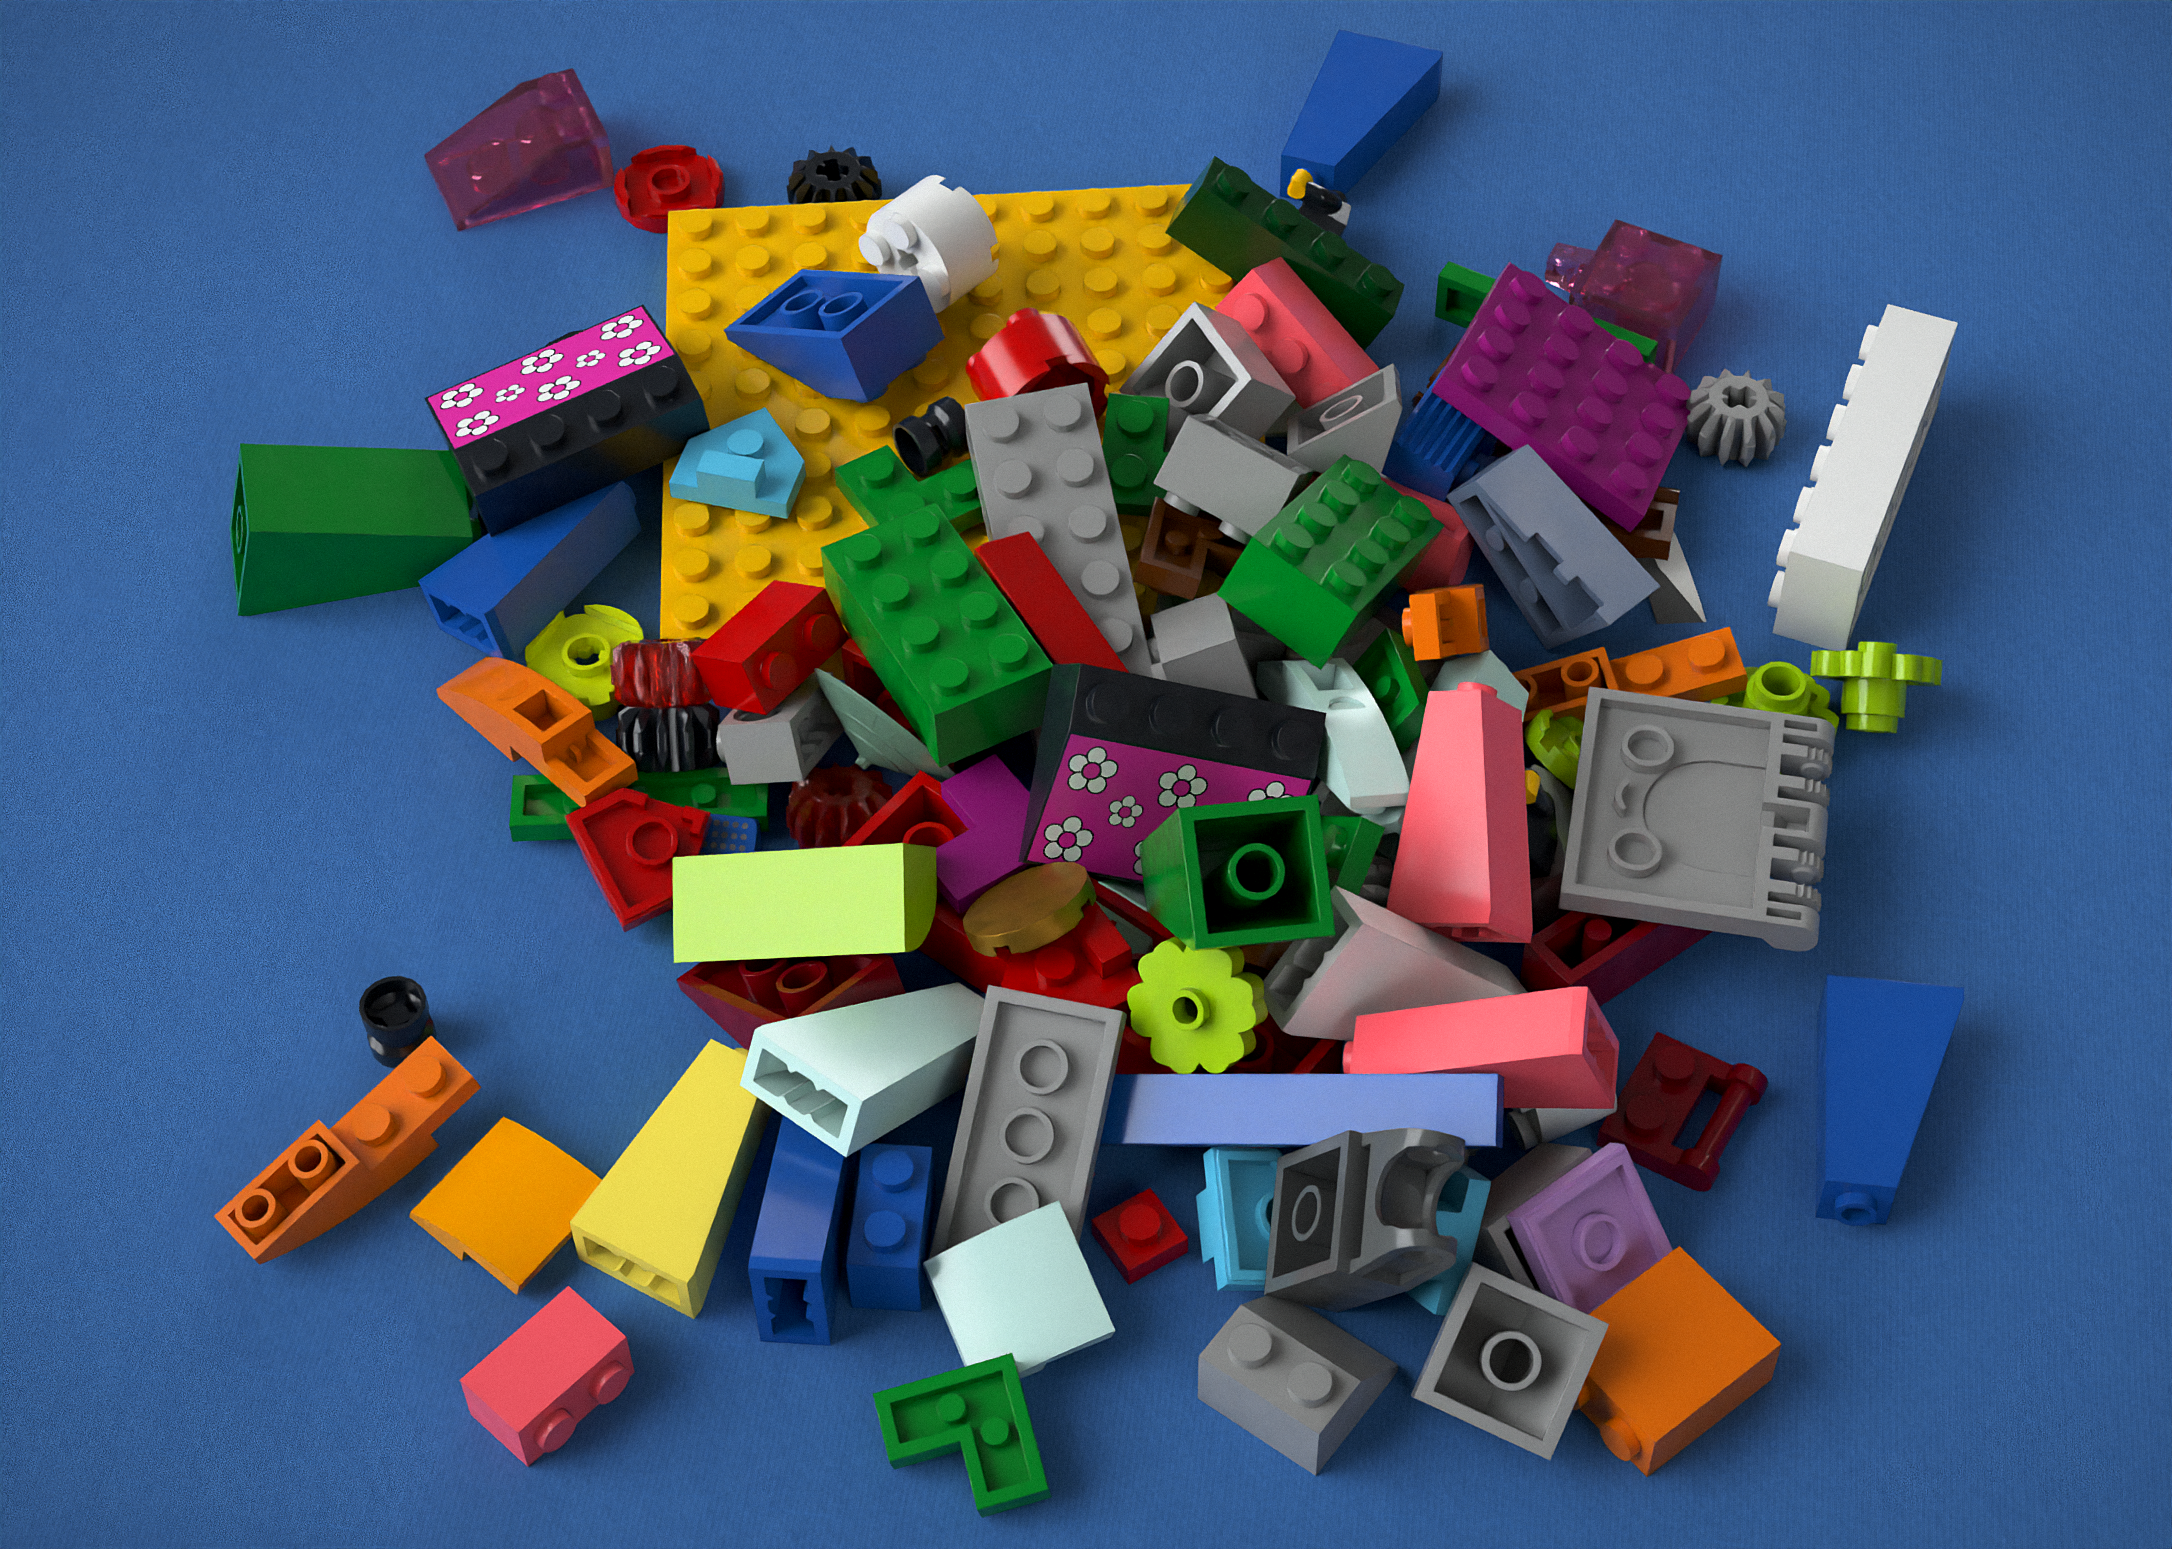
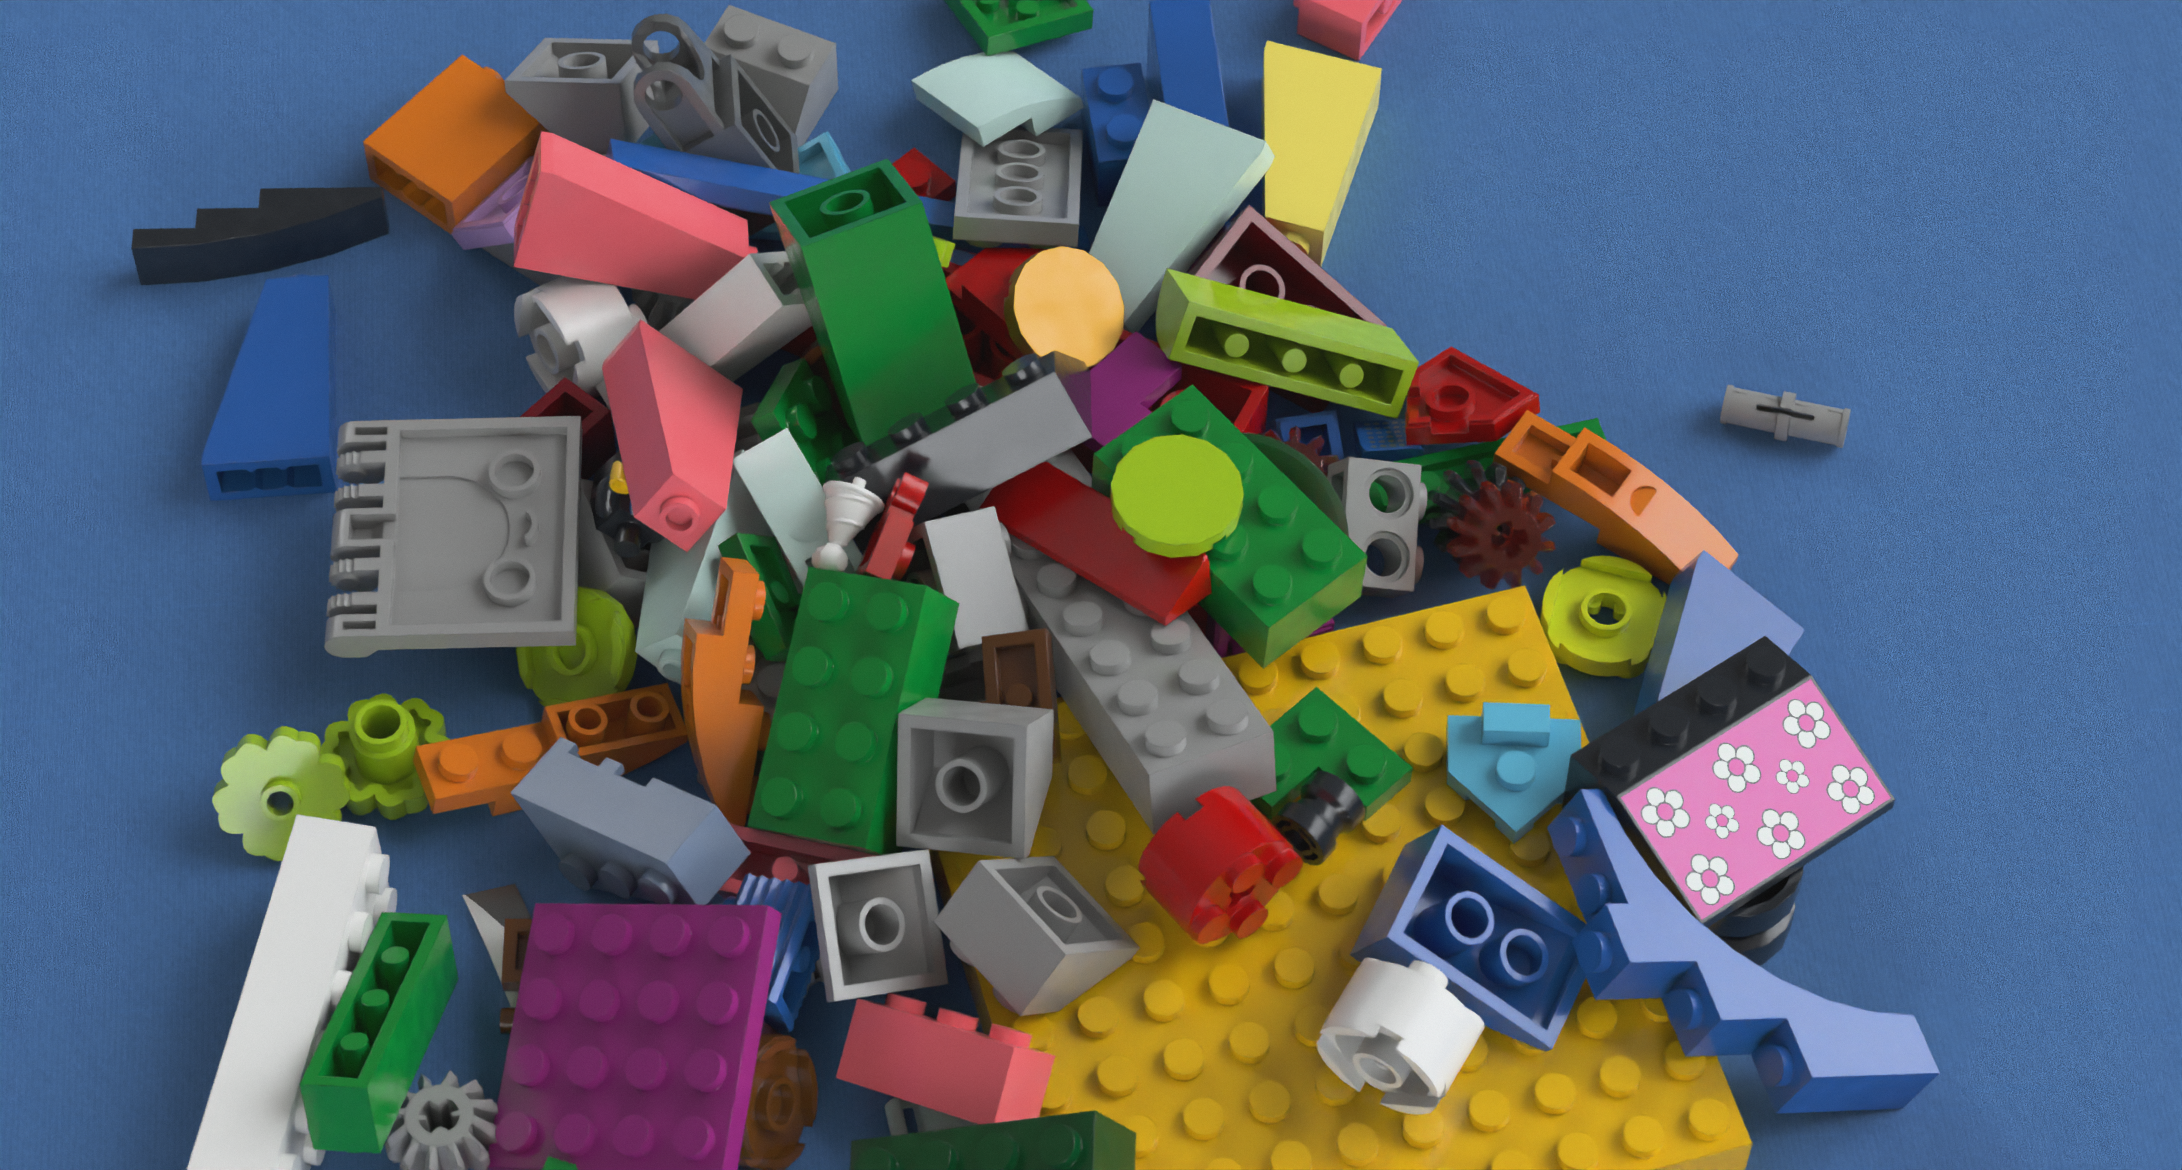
camera: 165 degrees right, 5 degrees up
(320, 813) = (1785, 416): none -> light grey pin
(342, 522) = (1938, 687): green slope -> none
(345, 1167) = (1599, 118): orange slope -> none
(395, 1018) = (1612, 232): black wheel -> none
(508, 1203) = (1448, 114): light orange slope -> none
(612, 262) = (1718, 1001): none -> blue arch
(770, 647) = (1403, 533): red brick -> none
(988, 585) = (1176, 495): none -> lime tile
(1135, 450) = (1096, 832): green plate -> none
(1274, 652) = (888, 549): none -> red plate
(1306, 680) = (847, 513): none -> white piece
(1662, 1101) = (475, 373): dark red plate -> none
(1788, 436) = (379, 1033): none -> green brick
(1876, 1286) = (281, 232): none -> black slope

